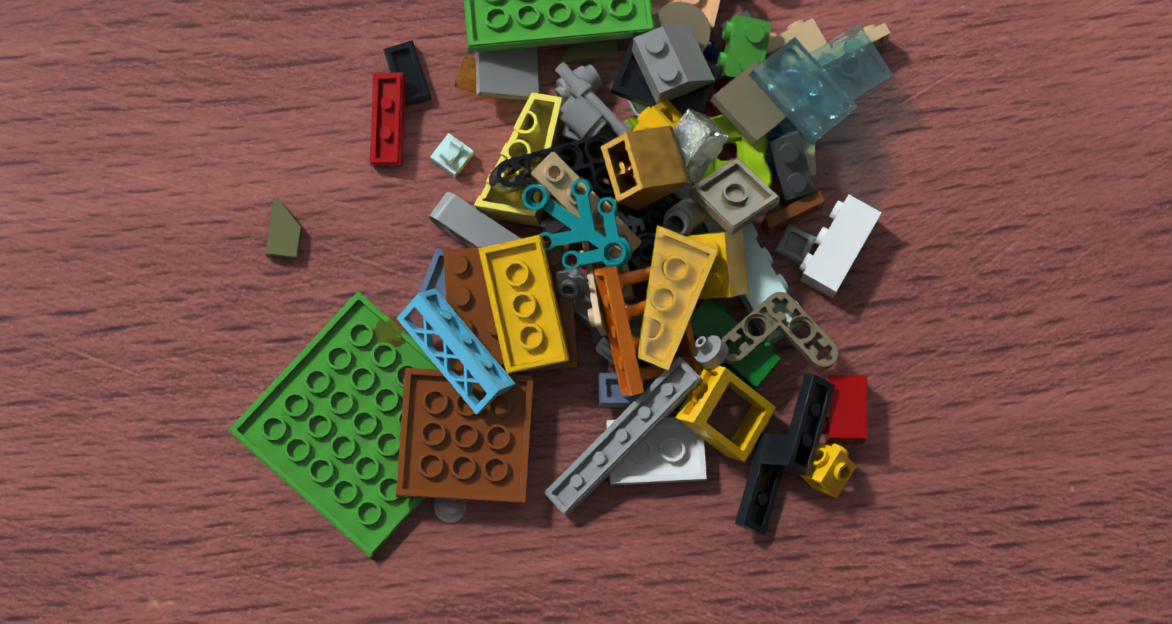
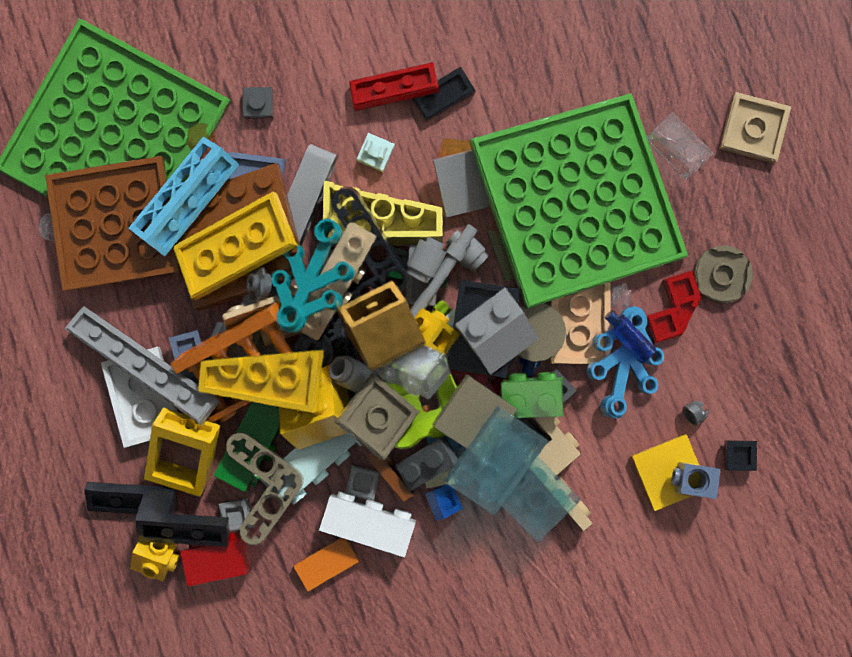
camera: 85 degrees right, 10 degrees up
(283, 233) = (269, 21): olive tile -> none
(368, 263) = (258, 102): none -> dark grey plate
(710, 351) = (227, 426): light grey tile -> none
(795, 376) = (236, 511): none -> light grey tile
(832, 166) = (443, 501): none -> blue plate
(871, 300) = (326, 563): none -> orange tile

